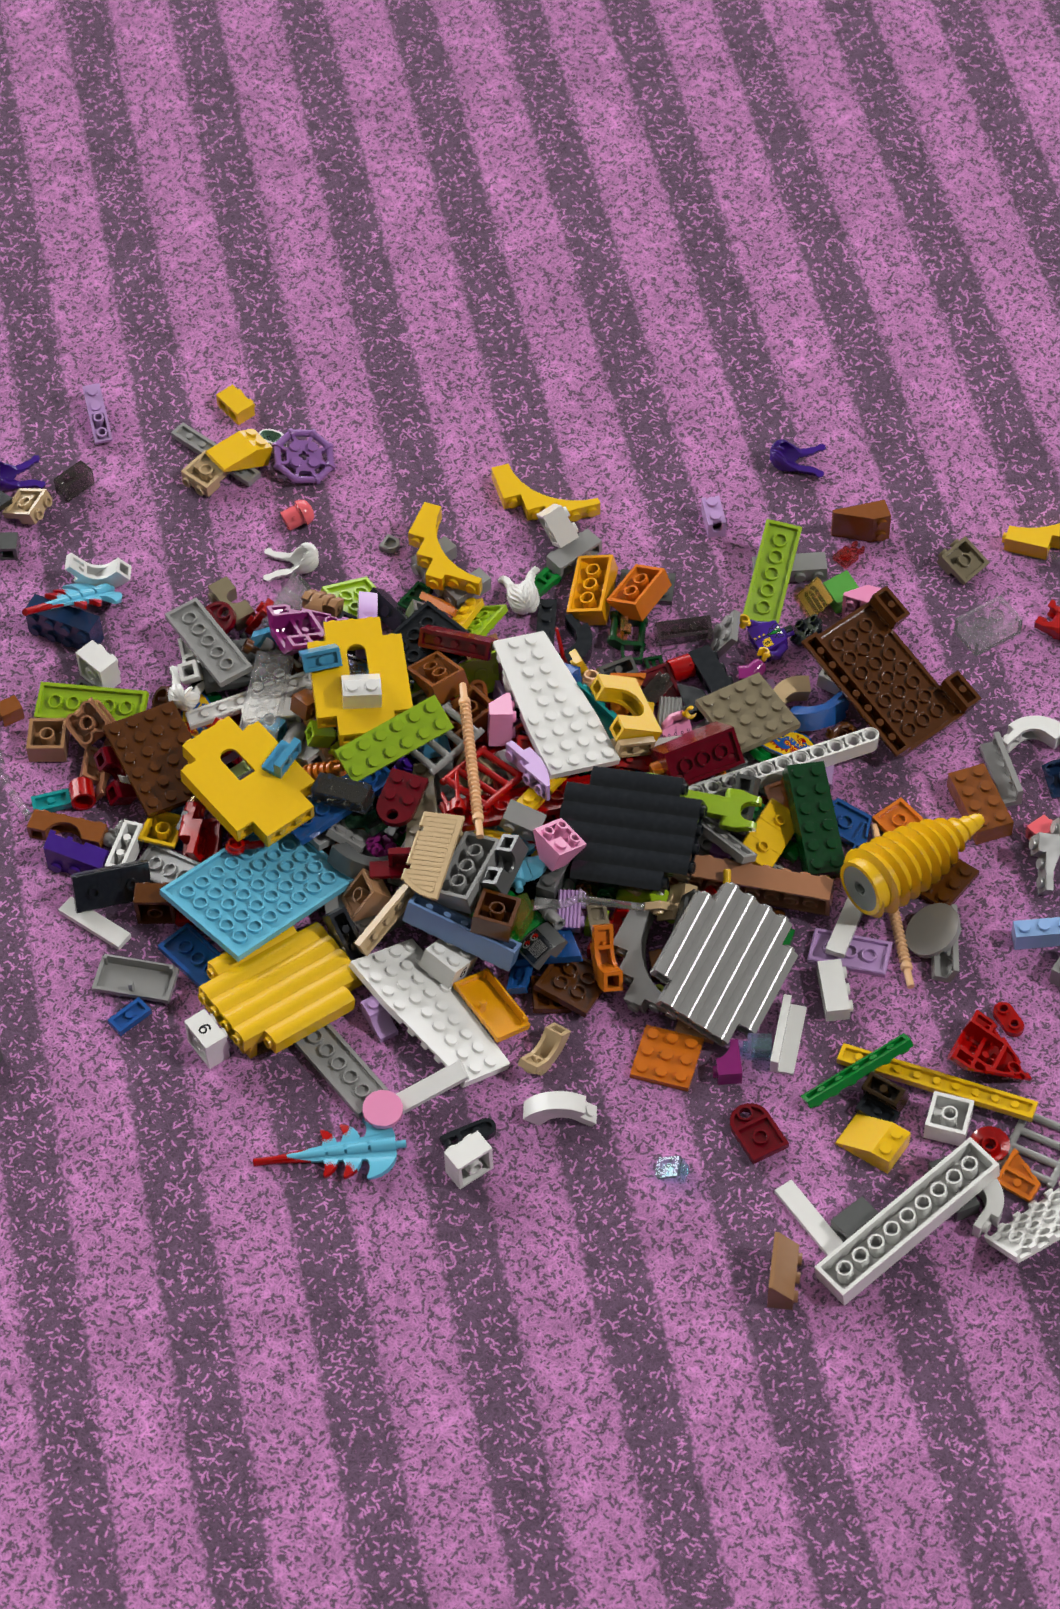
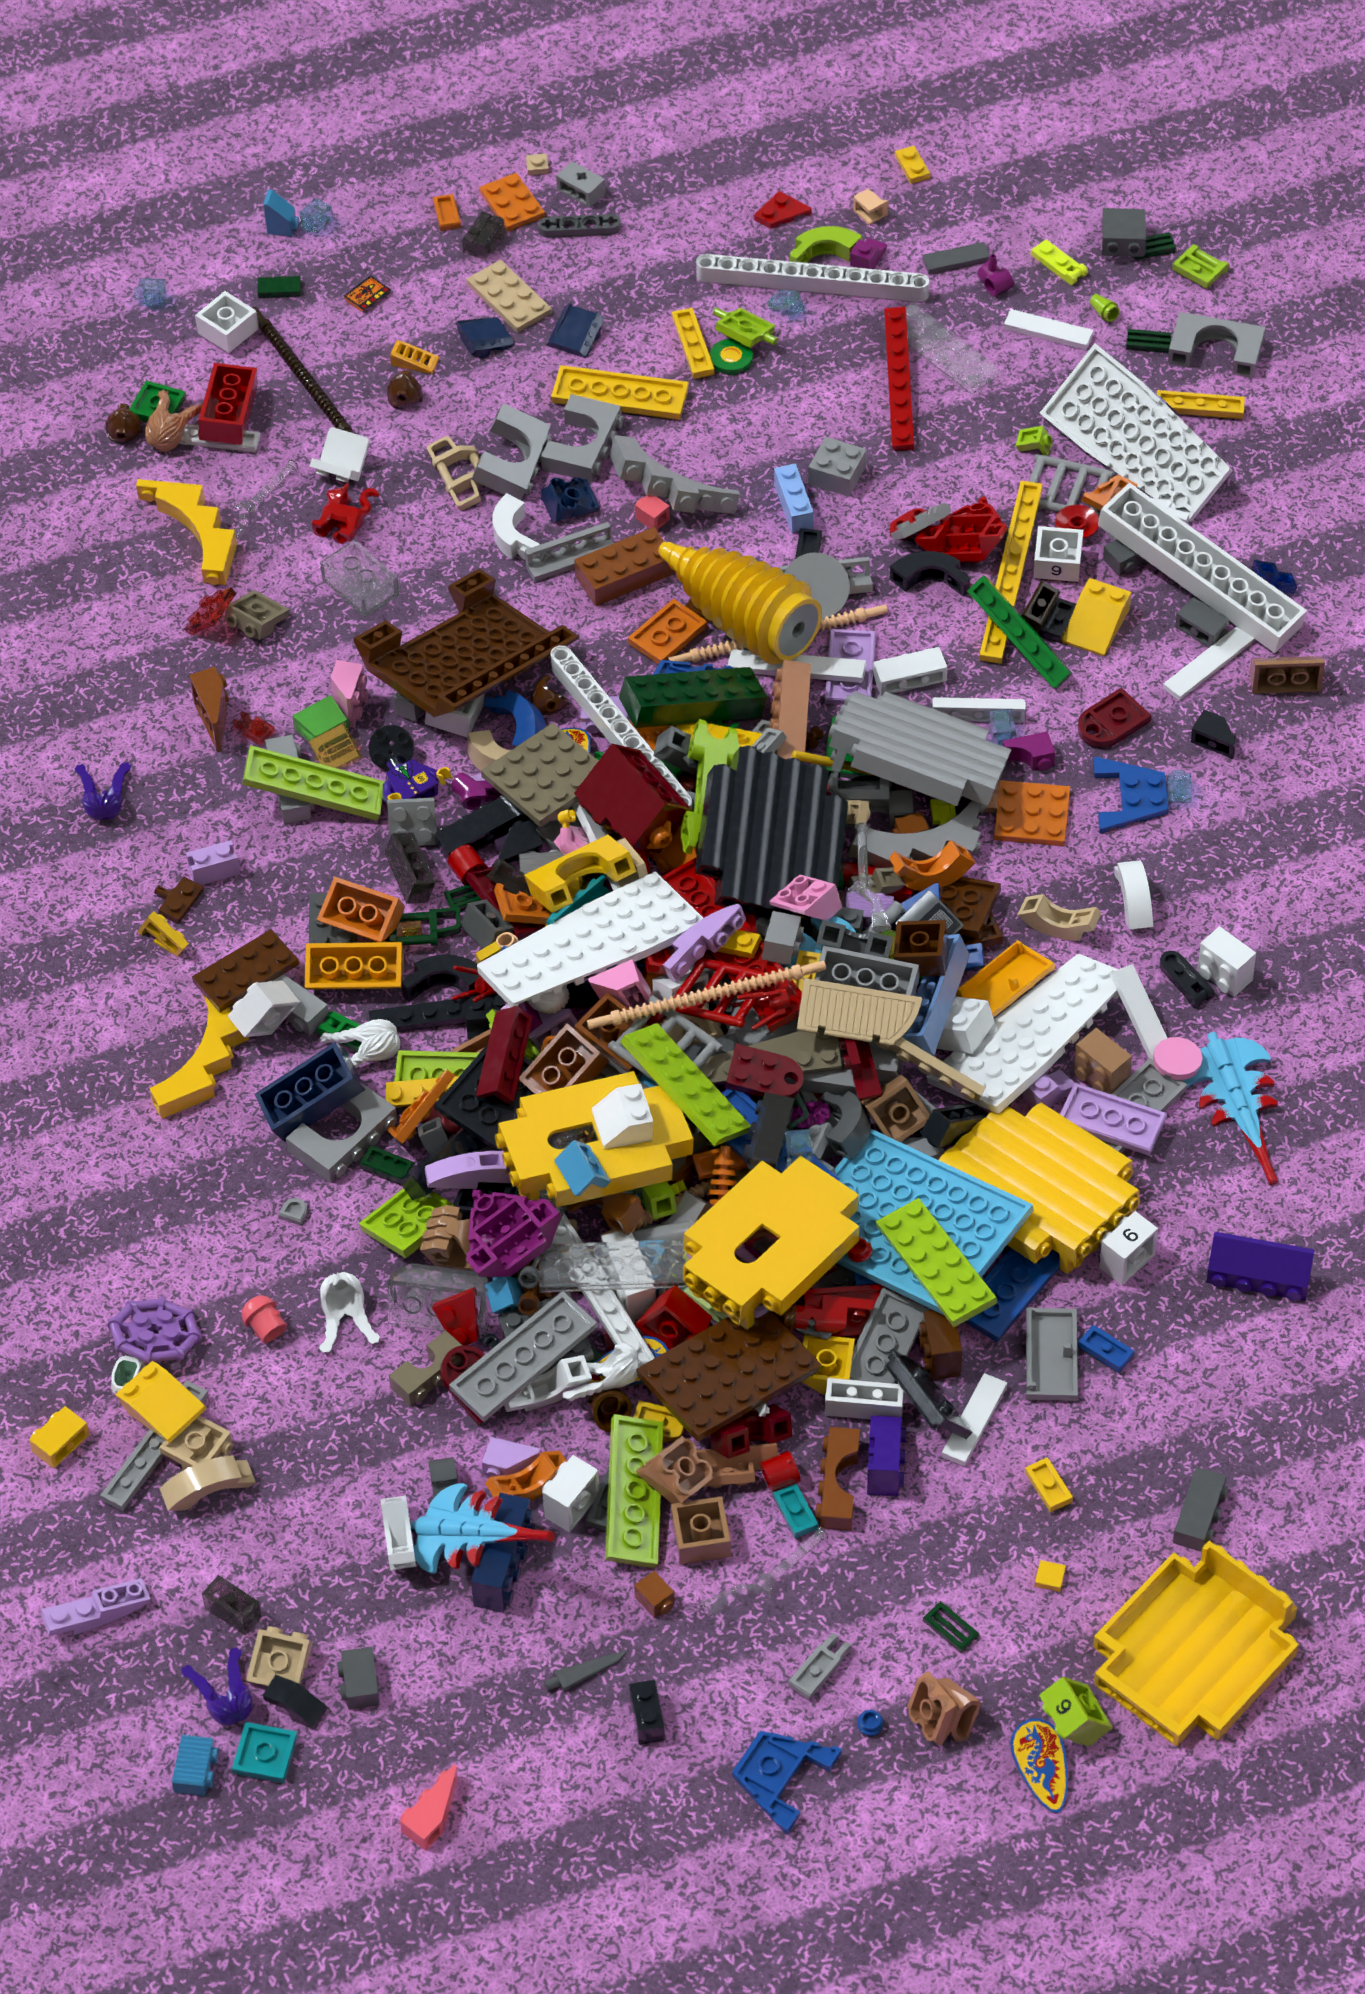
camera: 100 degrees left, 0 degrees up
(23, 959) = (1048, 1484): none -> yellow plate
(110, 837) = (824, 1424): light grey bar -> none
(119, 645) = (530, 1480): none -> orange arch
(139, 602) = (442, 1474): none -> dark grey brick
(144, 640) = (507, 1457): none -> lavender slope
(167, 1128) = (1260, 1266): none -> dark purple slope
(172, 478) = (205, 1478): none -> tan arch
(206, 888) = (936, 1262): none -> lime plate
(282, 757) = (740, 1191): dark azure panel -> none
(325, 809) = (798, 1144): none -> clear light blue brick
(334, 1052) = (1114, 1118): none -> lavender tile
(386, 1051) = (1101, 1062): none -> medium nougat brick
(440, 570) = (297, 1150): yellow arch -> none
(477, 547) = (310, 1091): none -> dark blue brick
(600, 521) = (254, 962): none -> reddish brown plate
(650, 482) = (165, 935): none -> yellow wing
(671, 1139) = (1141, 793): none -> blue wing
(686, 498) = (179, 899): none -> reddish brown plate
(725, 1205) = (1213, 734): none -> black slope
(895, 1284) = (1281, 580): none -> clear blue brick
(951, 1012) = (929, 566): none -> black arch
(962, 527) = (209, 610): none -> clear red plate
(989, 941) = (808, 542): none -> black tile
(998, 1019) = (922, 520): none -> light grey hinge

